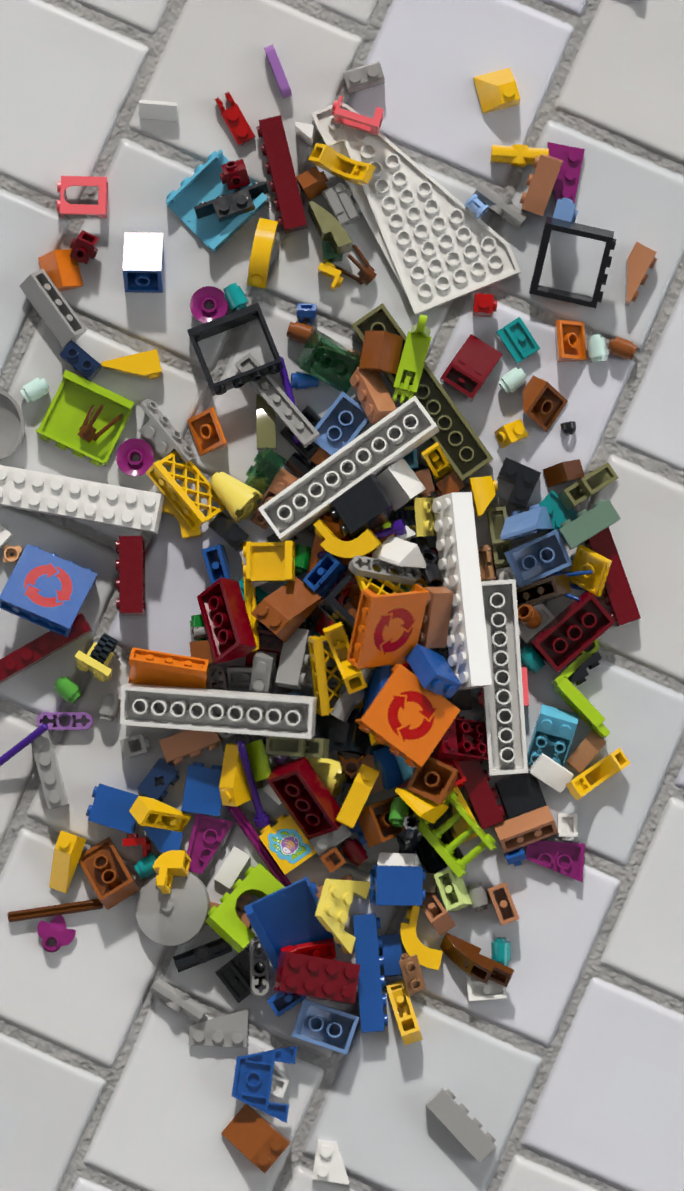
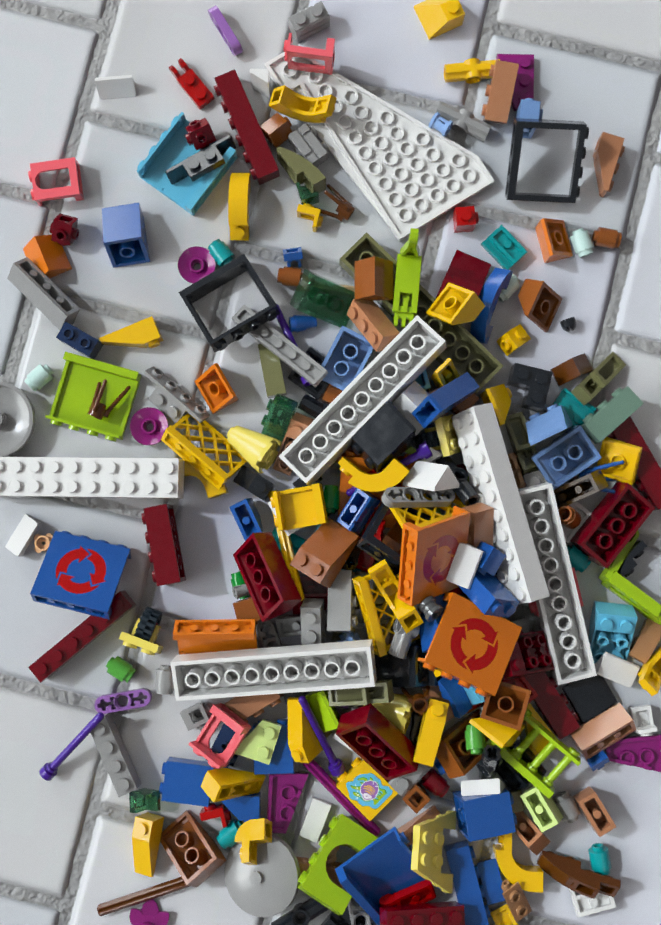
camera: 10 degrees left, 0 degrees up
(71, 819) = (144, 800): none -> clear green panel
(136, 772) = (202, 744): none -> coral panel
(192, 780) = (260, 742): none -> yellowish green wing
(375, 675) = (430, 608): none -> dark grey wheel
(415, 641) = (464, 565): none -> white slope
(427, 481) = (445, 399): none -> blue slope
(438, 639) = (490, 559): none -> blue brick
(455, 392) = (456, 305): none -> yellow slope
(488, 394) = (489, 295): none -> blue slope

